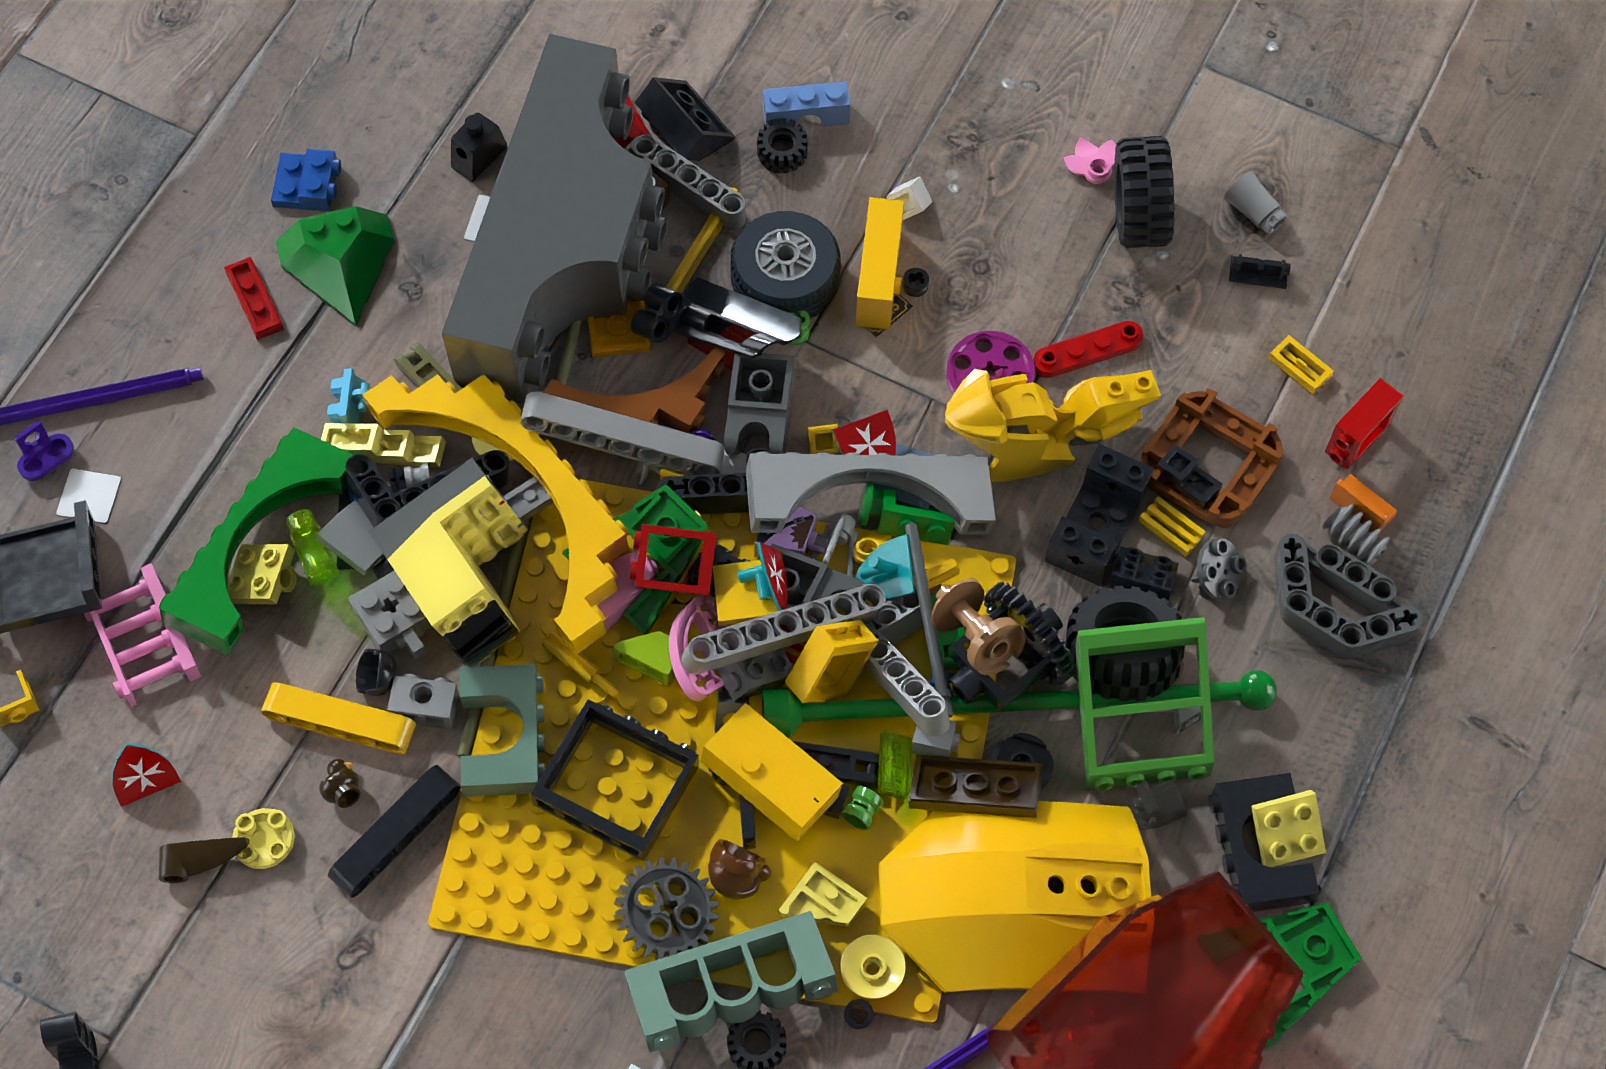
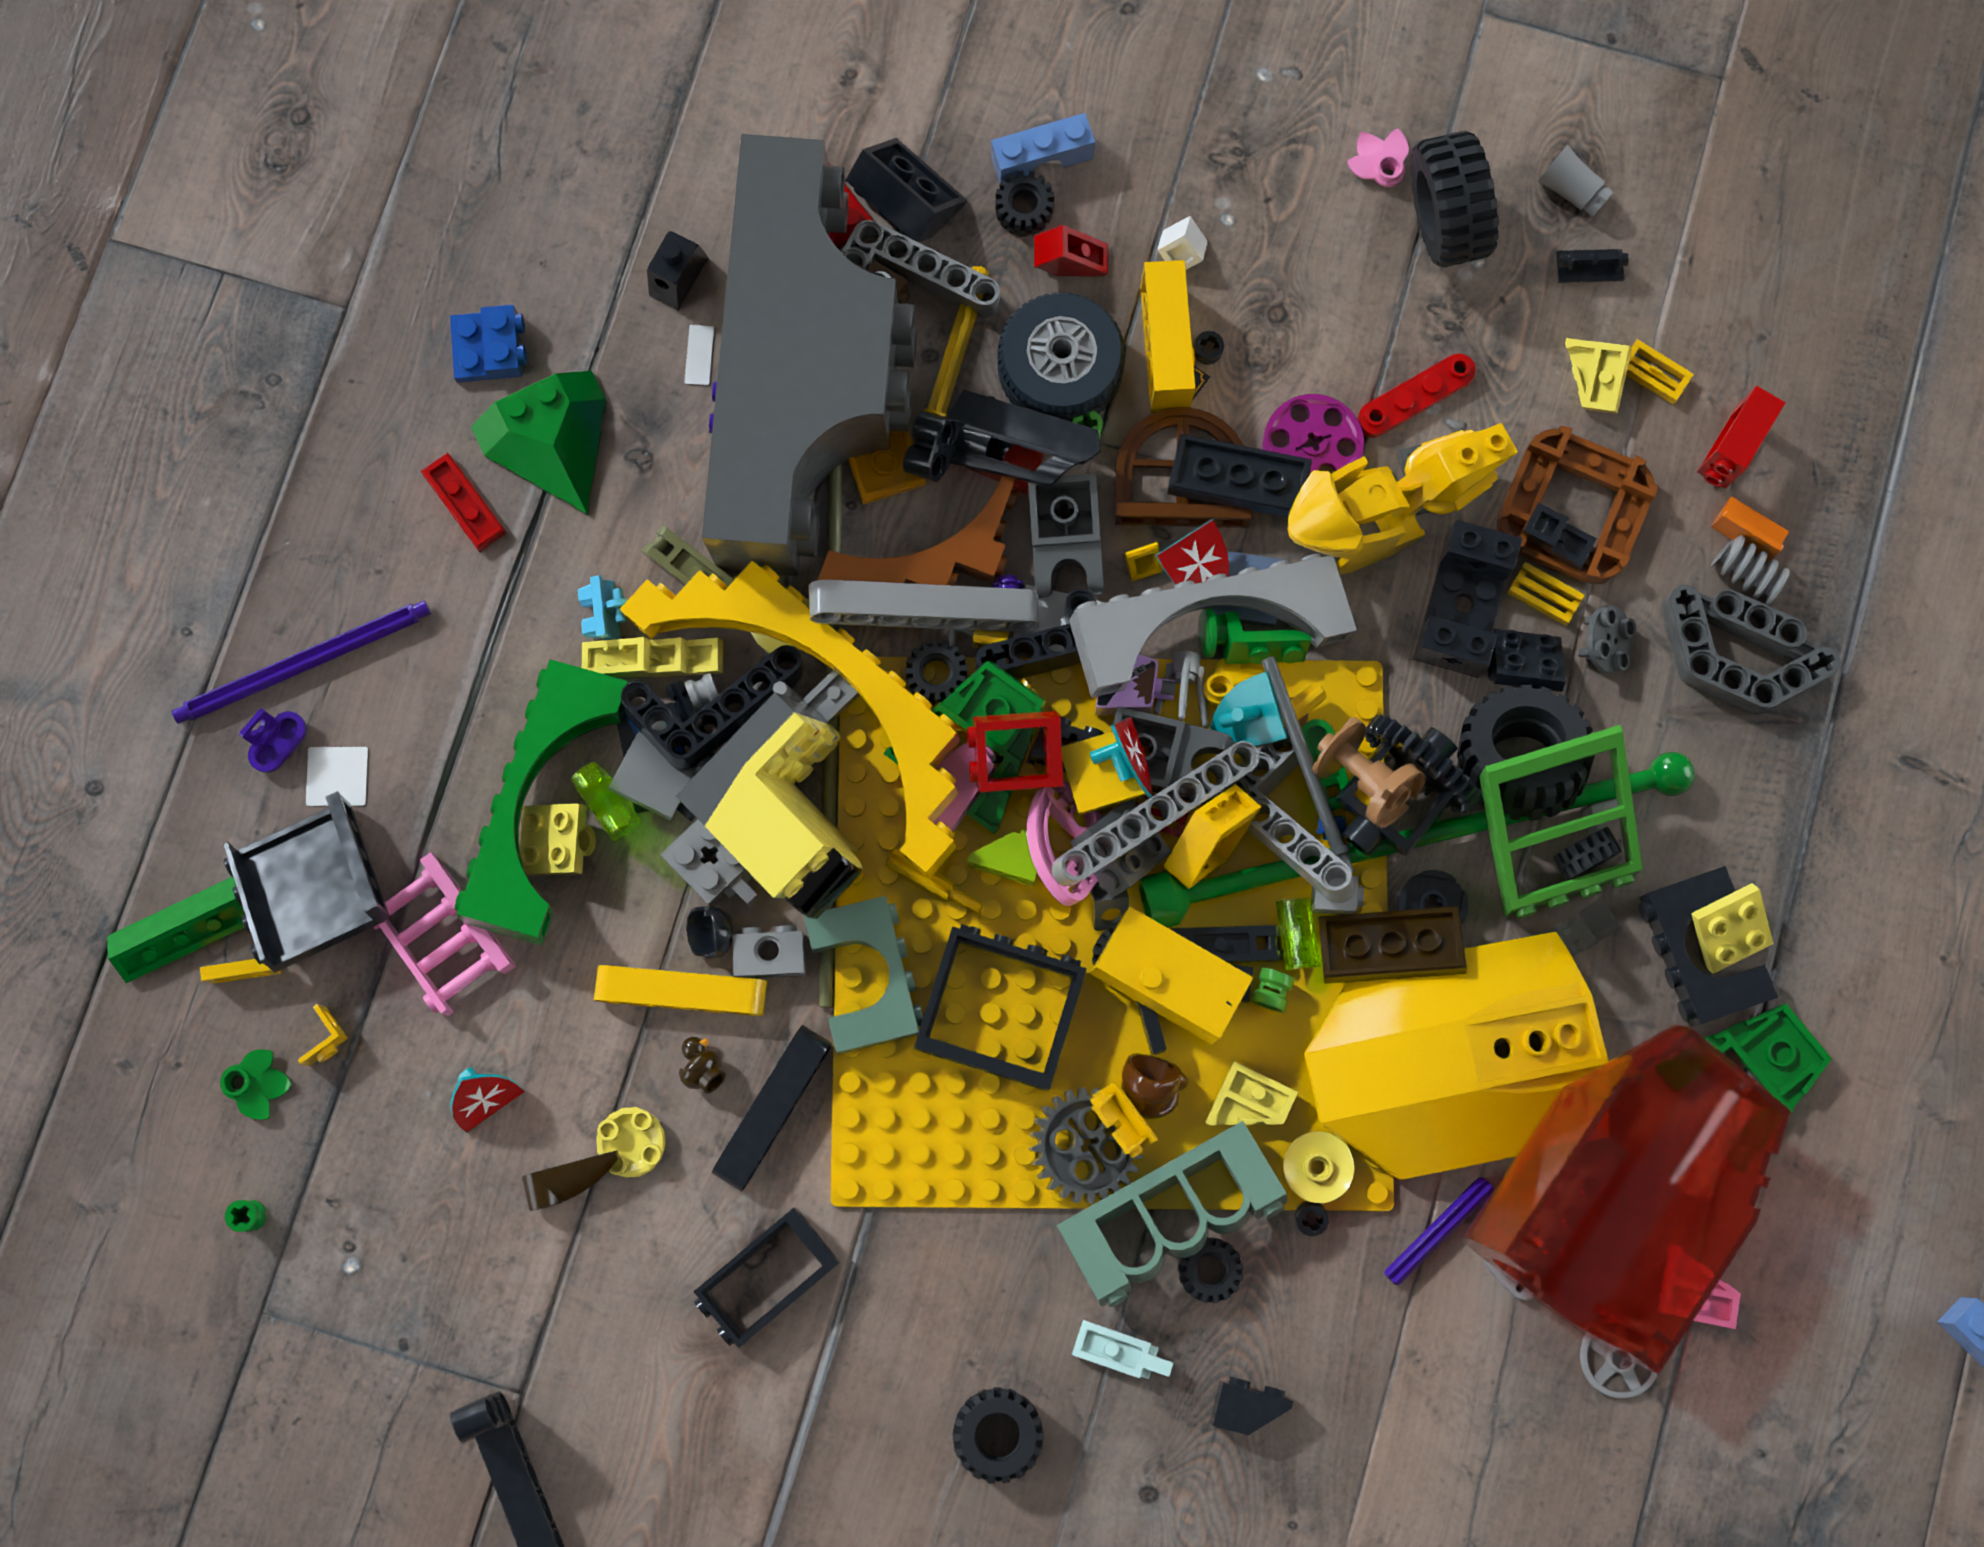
camera: 10 degrees left, 15 degrees up
(338, 952) = (710, 1306): none -> black window
(621, 479) = (931, 652): none -> black tyre
(706, 895) = (1117, 1110): none -> yellow hinge
(812, 189) = (1070, 253): none -> red slope
(861, 406) = (1171, 513): none -> reddish brown window
(908, 379) = (1237, 475): none -> black tile
(1168, 740) = (1587, 853): none -> black tyre
(1250, 355) = (1599, 373): none -> light yellow wing

